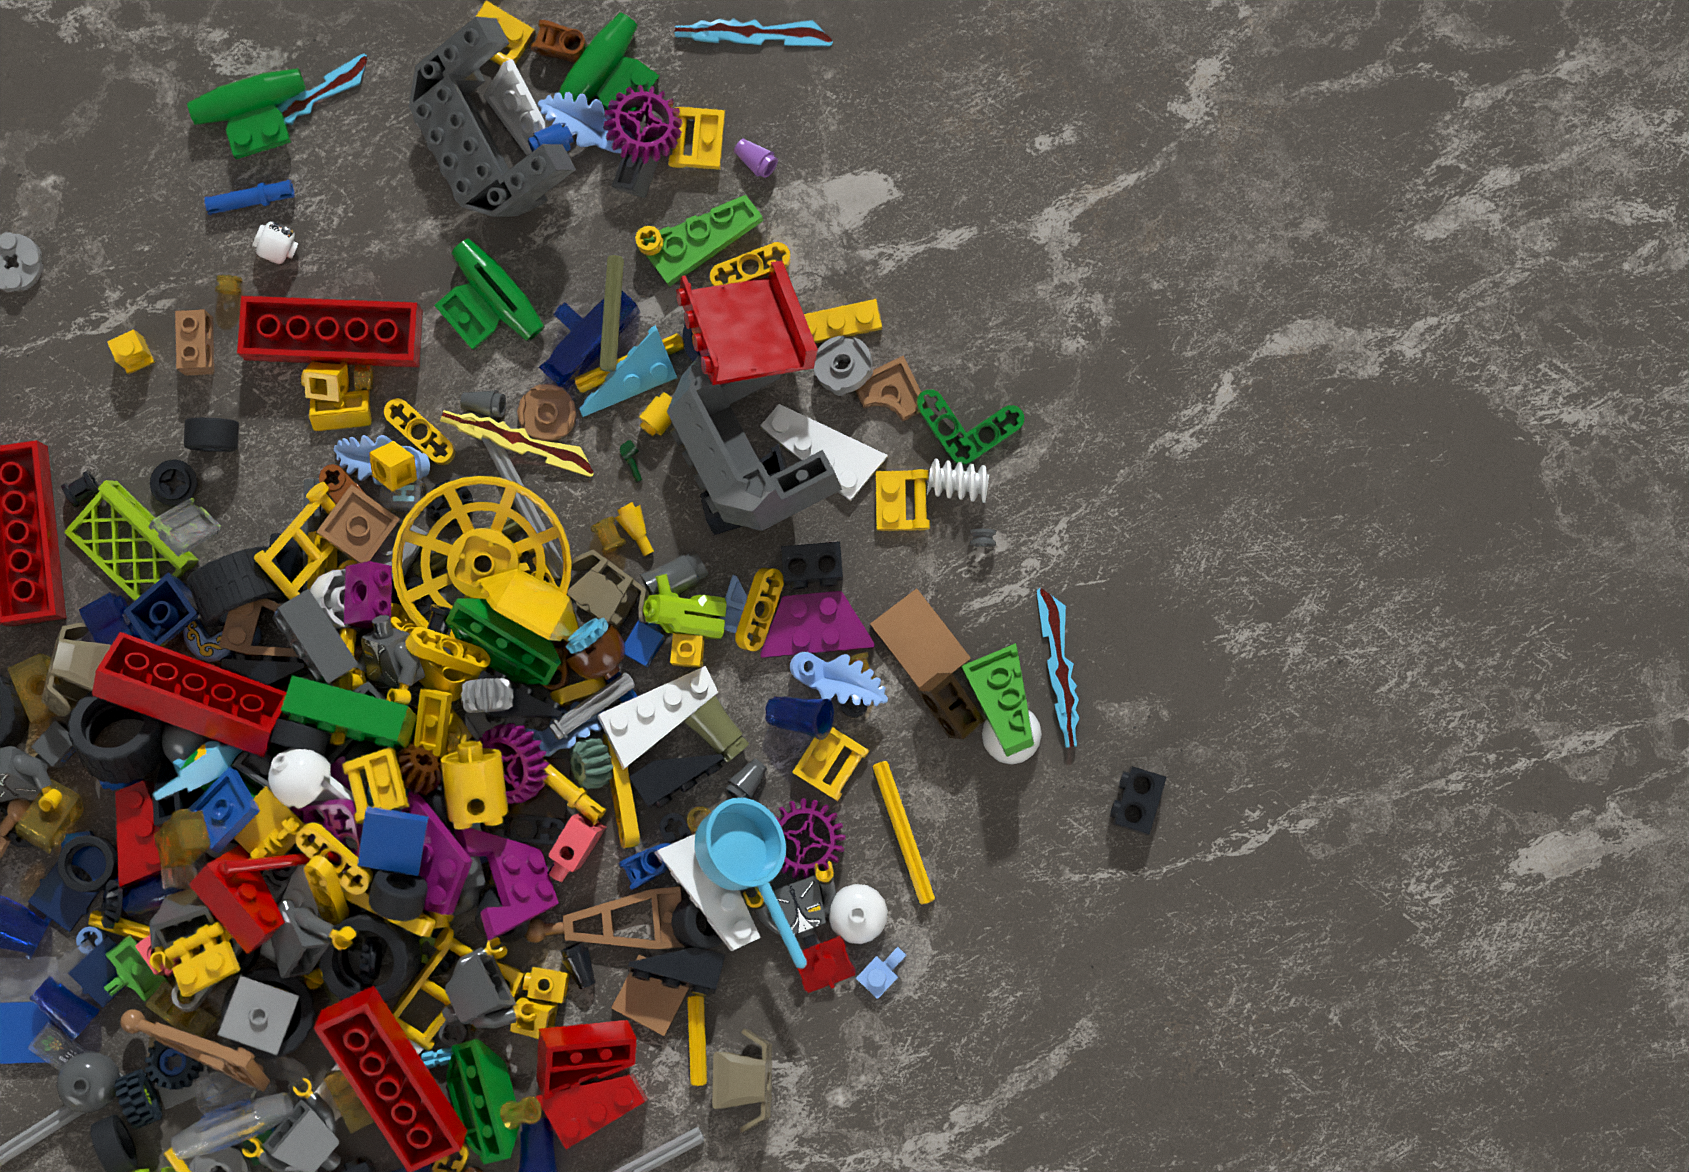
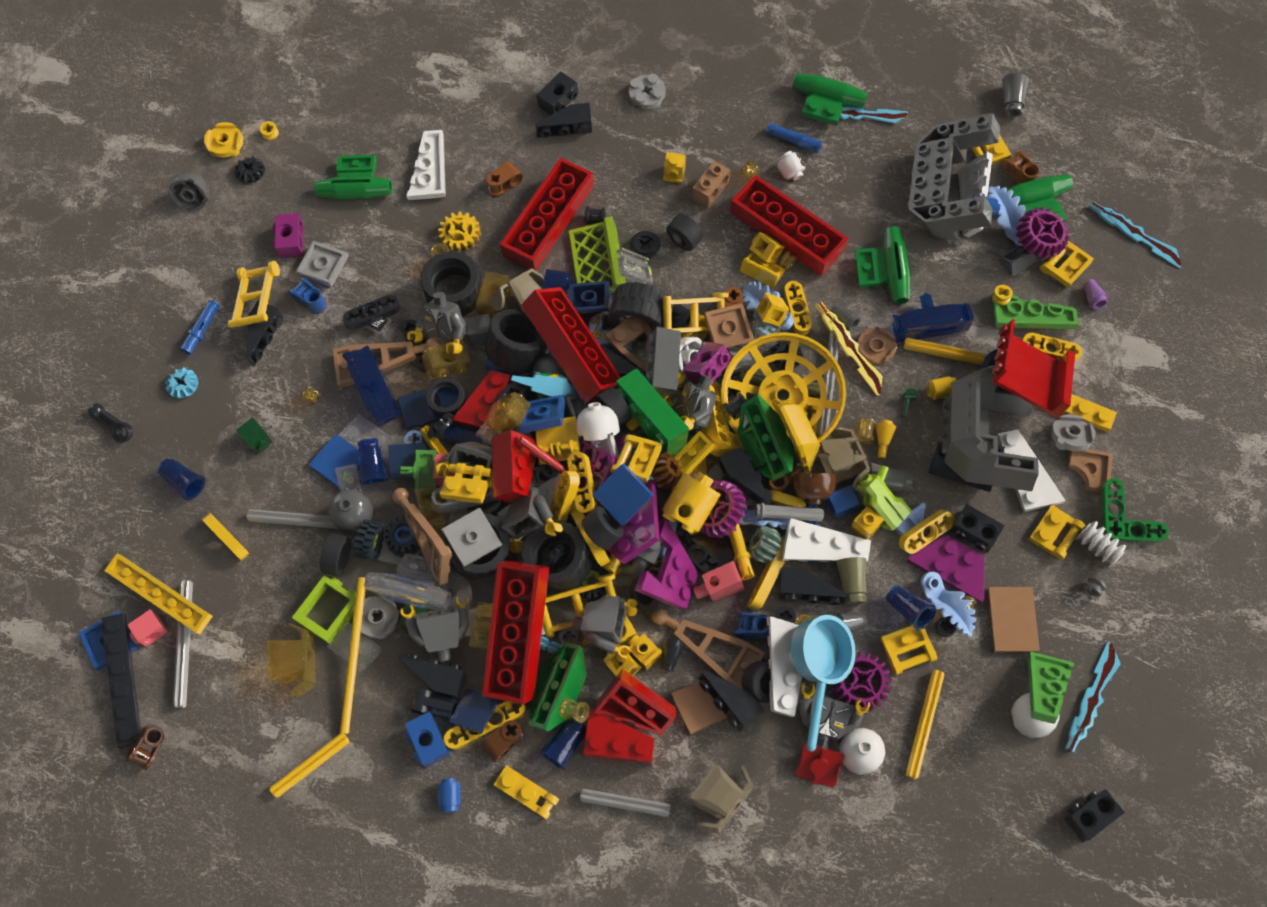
camera: 35 degrees right, 15 degrees down
(429, 644) = (730, 421): yellow beam -> none
(487, 695) = (736, 457): light grey gear -> none
(586, 635) = (817, 467): medium azure gear -> none
(611, 313) = (956, 312): olive axle -> none
(640, 371) = (950, 357): medium azure wing -> none
(697, 1040) = (708, 752): yellow axle -> none
(879, 974) = (849, 798): light blue plate -> none
(950, 705) = (1010, 667): dark brown brick -> none

